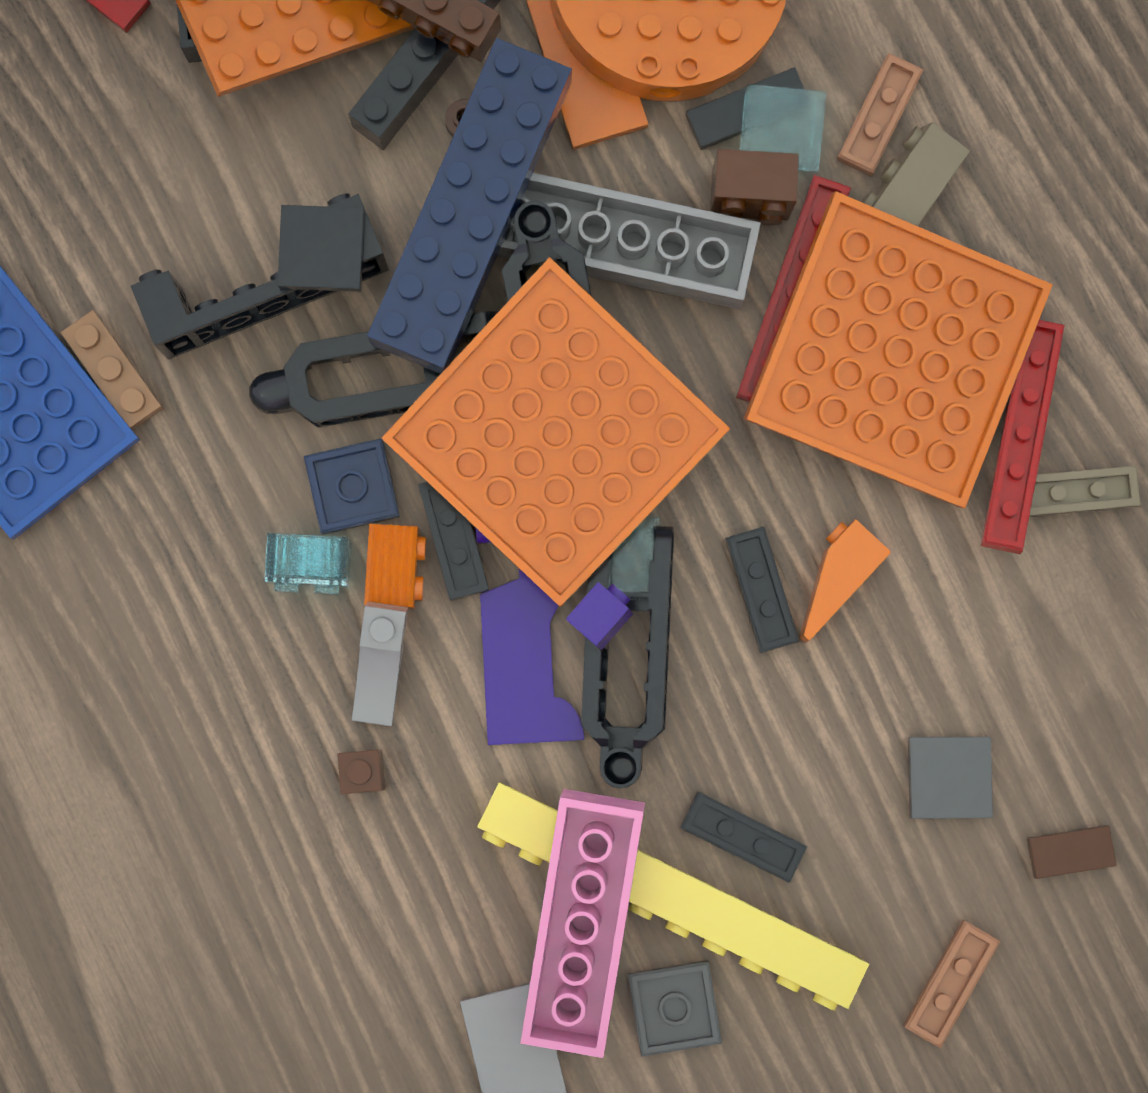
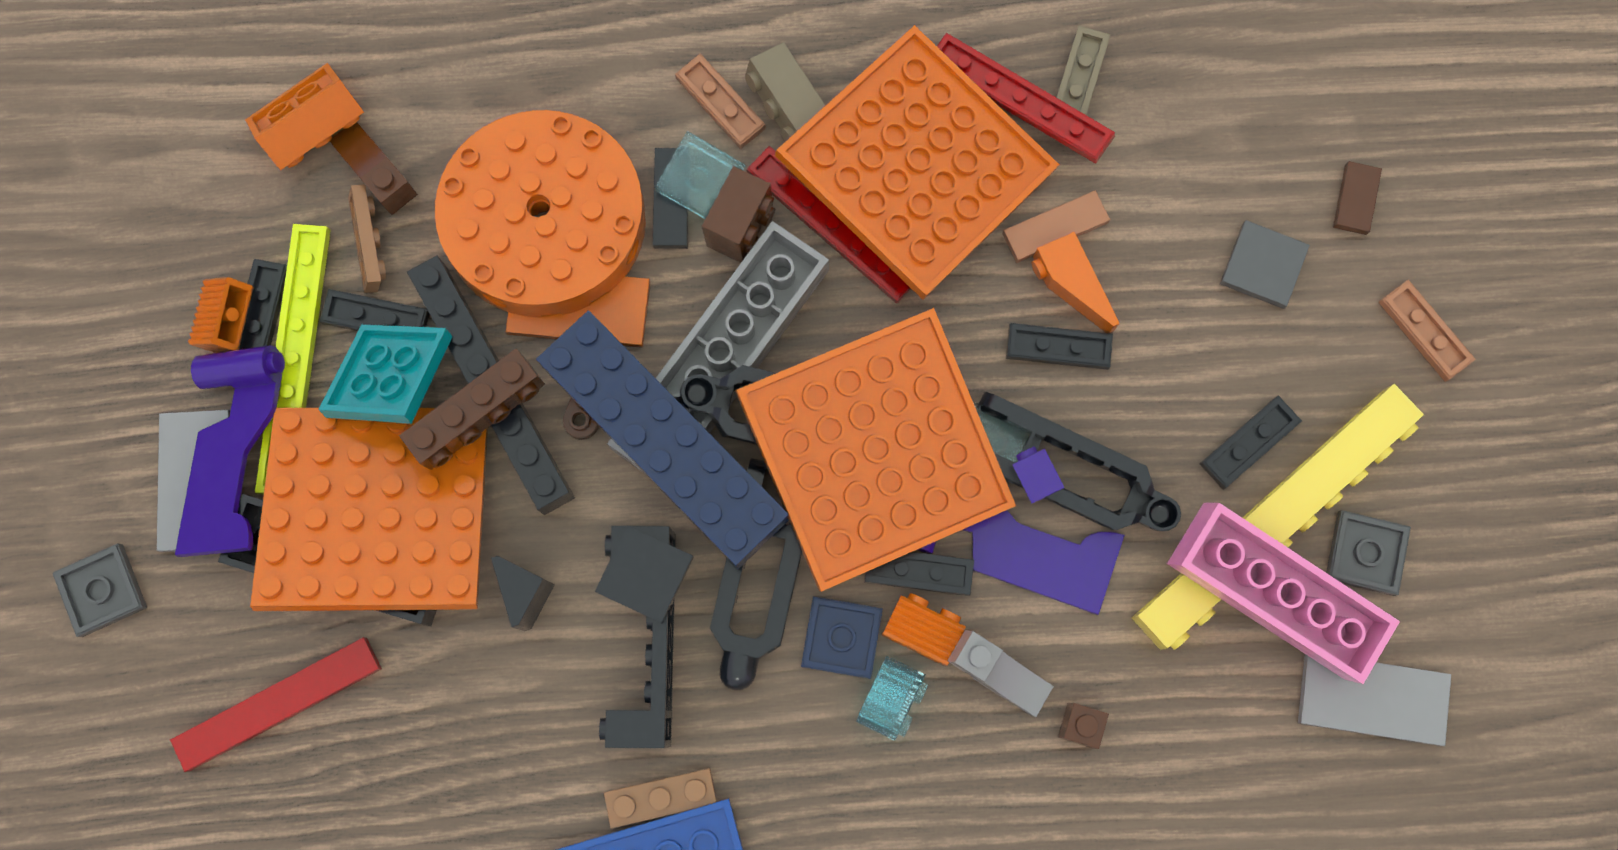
camera: 60 degrees left, 5 degrees down
(257, 135) = (521, 592): none -> black slope
(907, 542) = (1074, 216): none -> nougat tile

